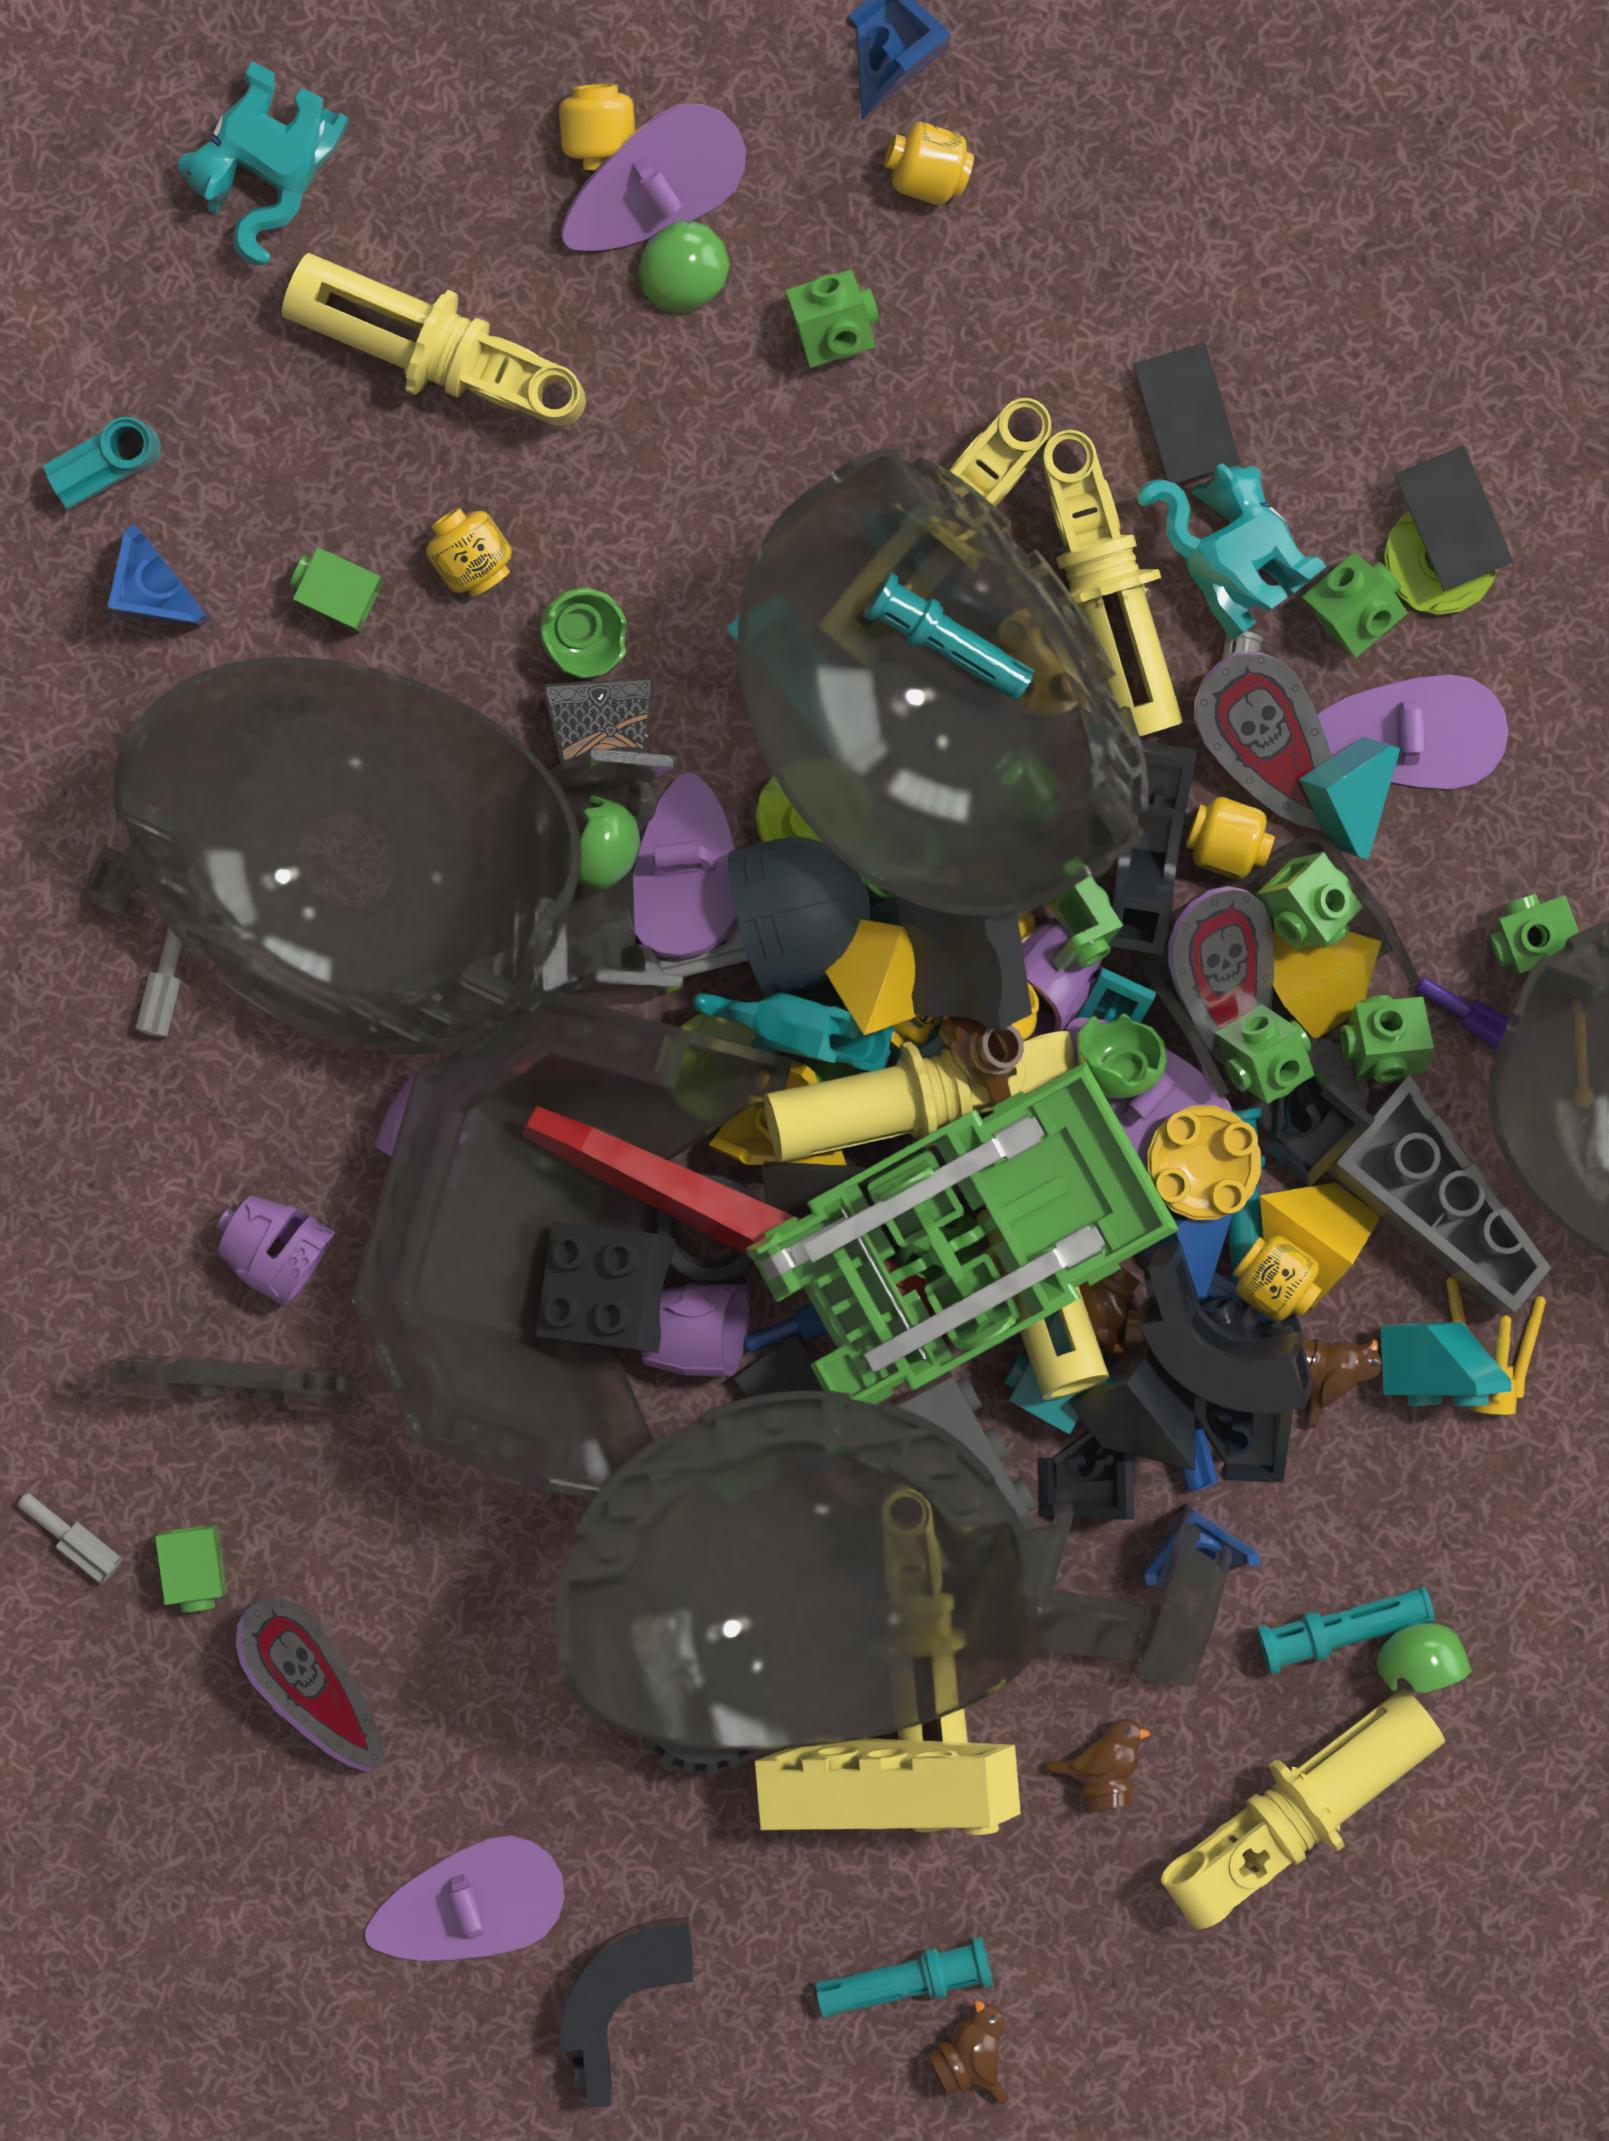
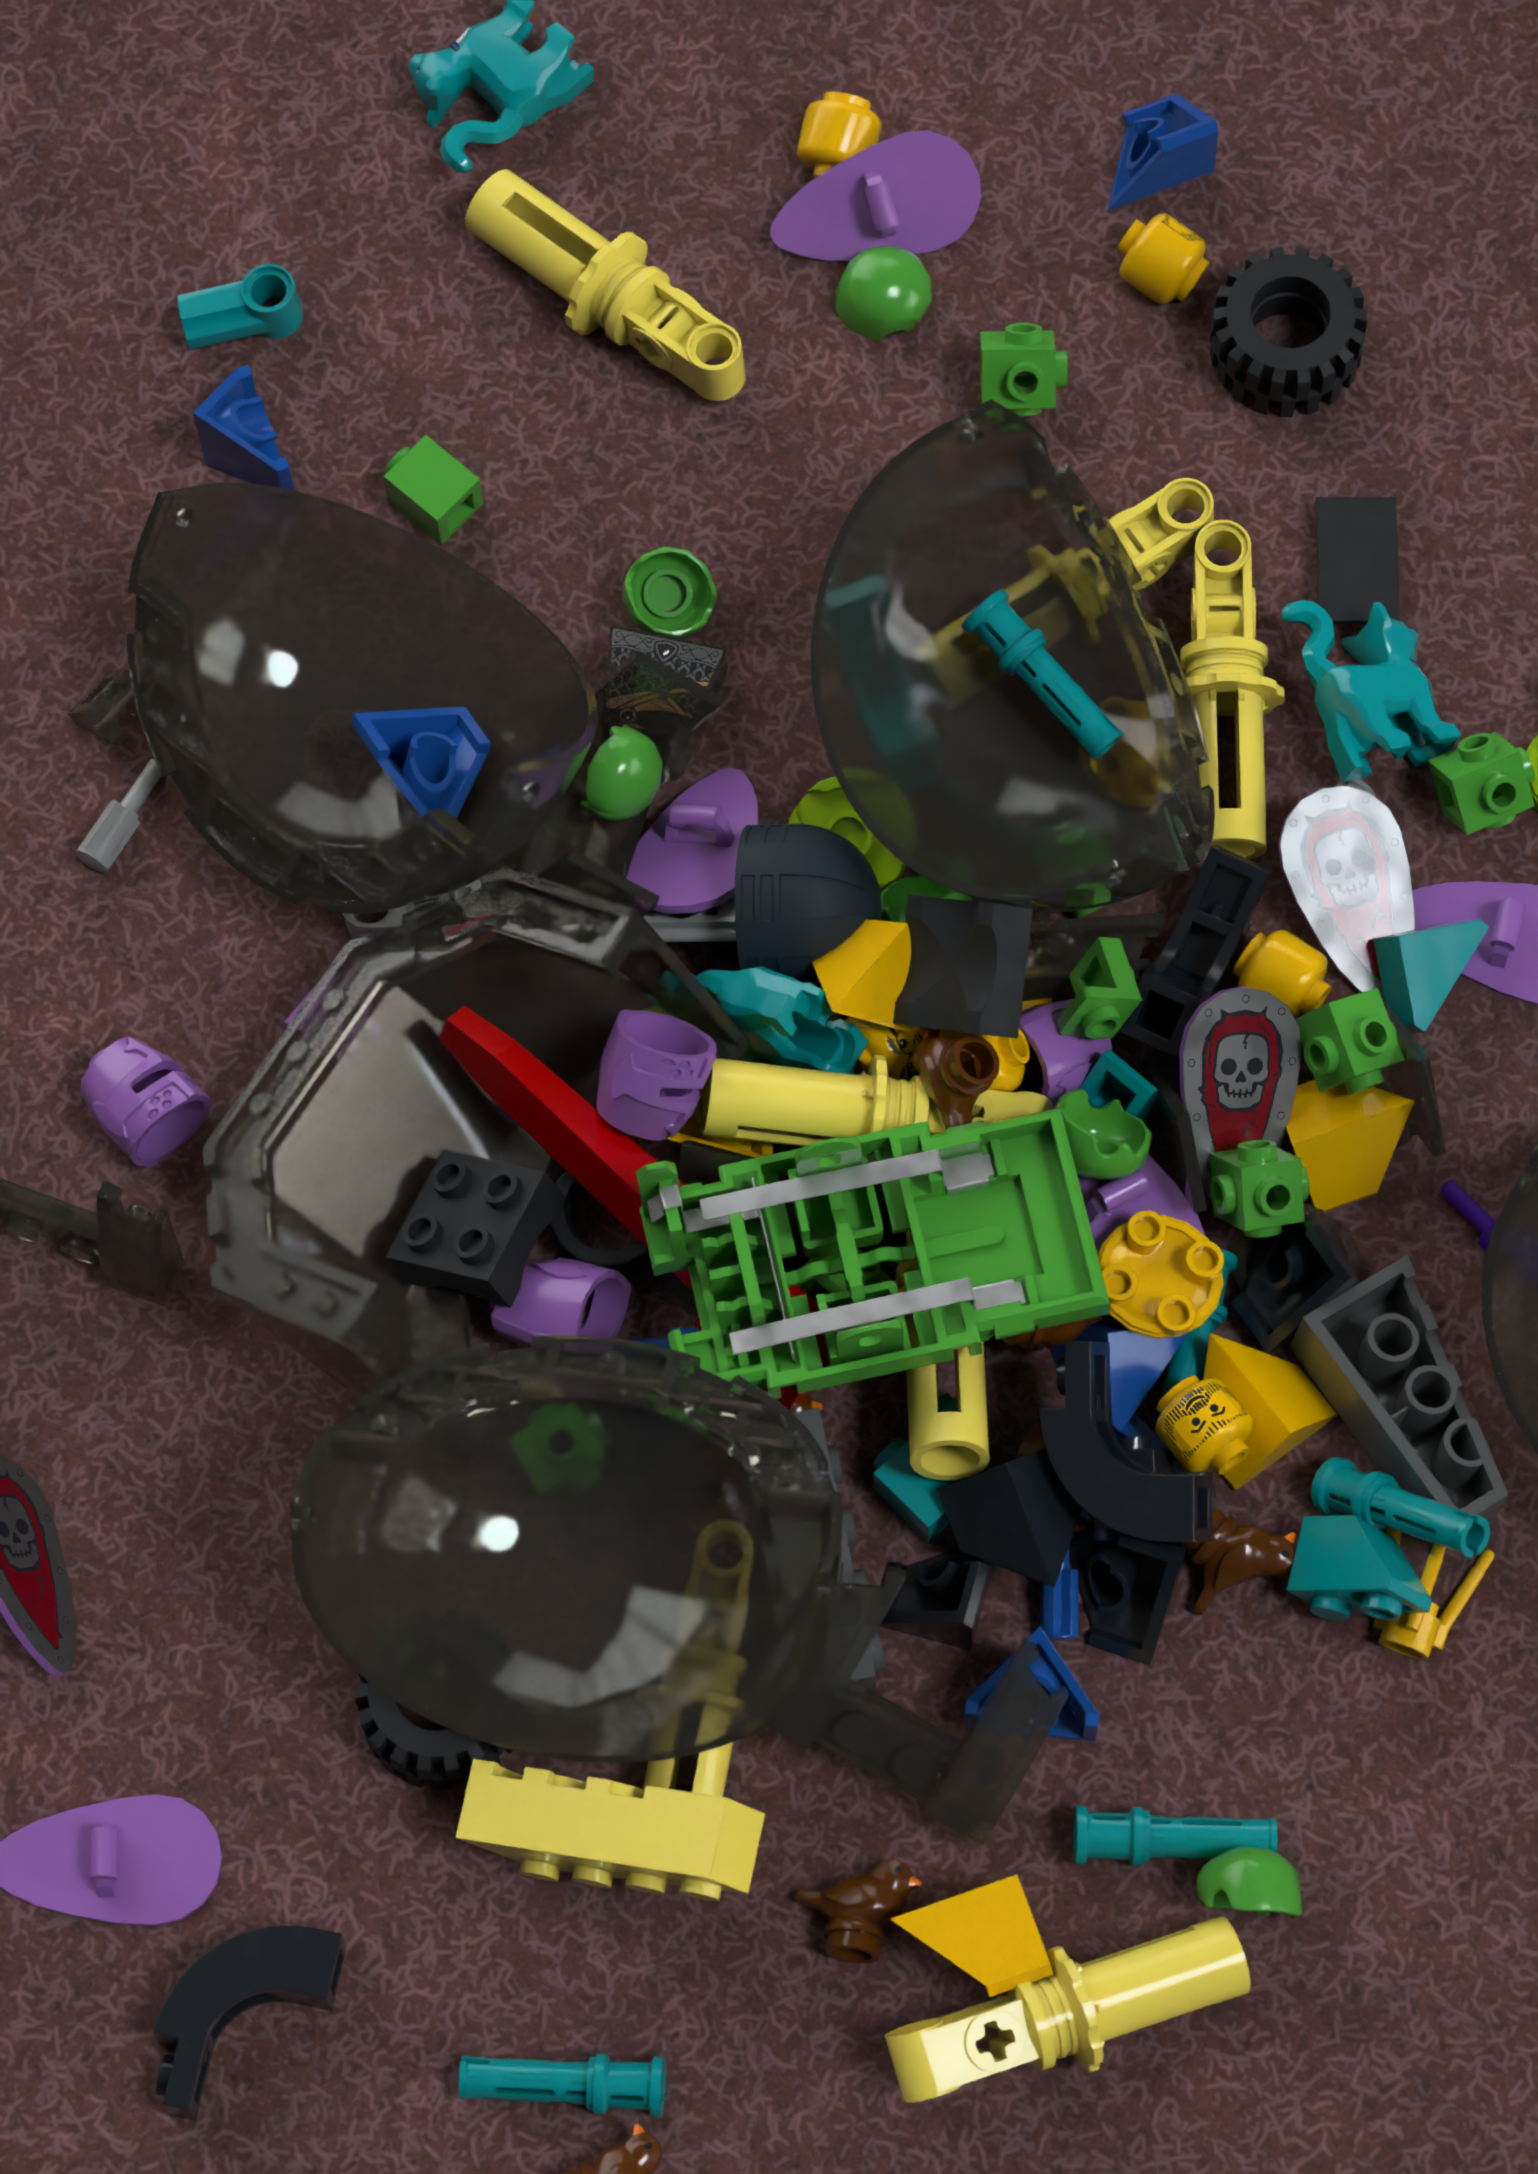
camera: 20 degrees right, 20 degrees down
(422, 865) = (427, 753): none -> blue slope
(469, 551) = (578, 489): yellow head -> none
(723, 1124) = (652, 1073): none -> medium lavender helmet
(1076, 159) = (1277, 373): none -> black tyre
(1107, 1307) = (1011, 1407): reddish brown animal -> none
(1216, 1773) = (984, 1934): none -> yellow slope
(1387, 1038) = (1394, 1219): bright green brick -> none
(1442, 1299) = (1383, 1503): none -> teal pin

